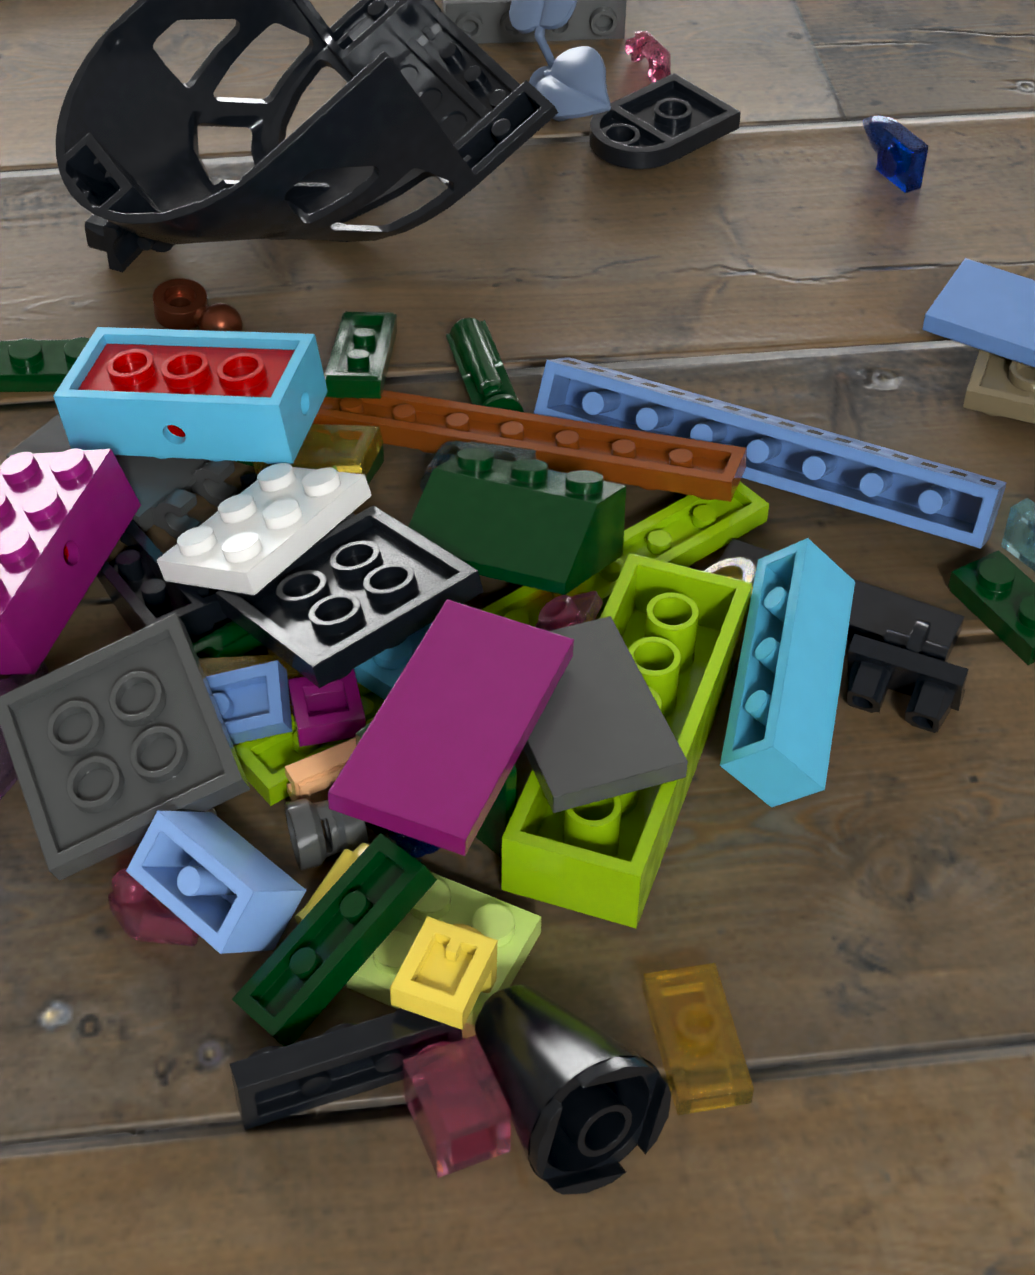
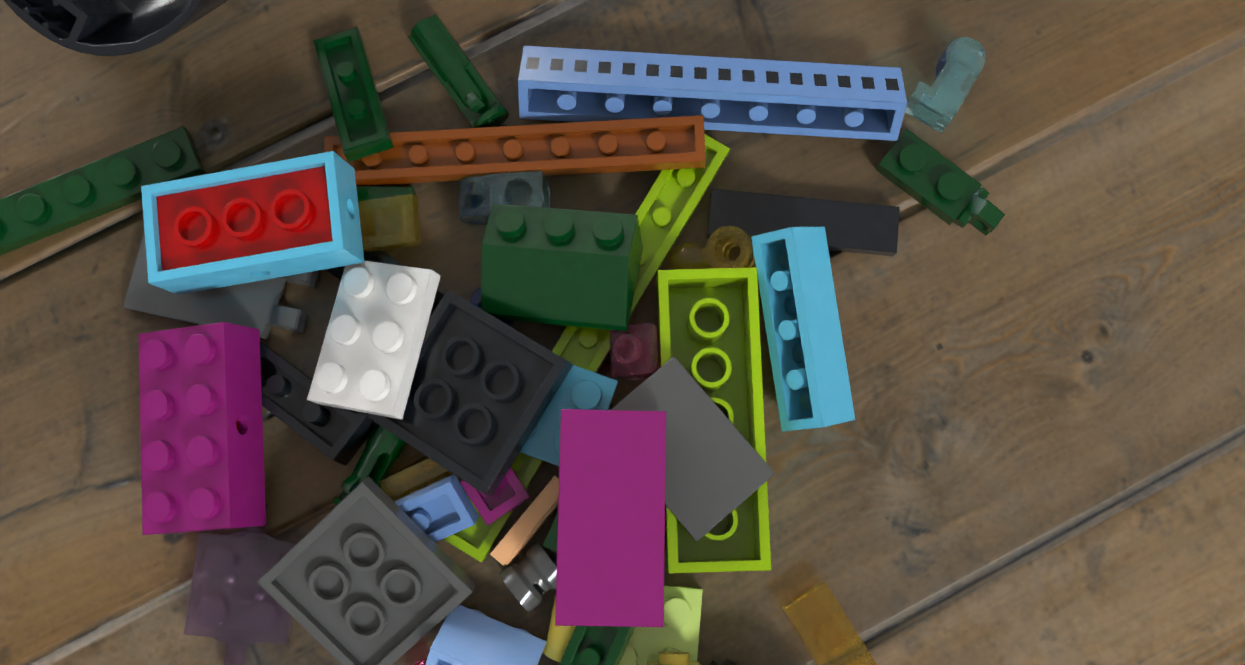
camera: 25 degrees left, 35 degrees up
(183, 306) = (216, 90): copper plate -> none
(909, 667) = (898, 289): black hips -> none

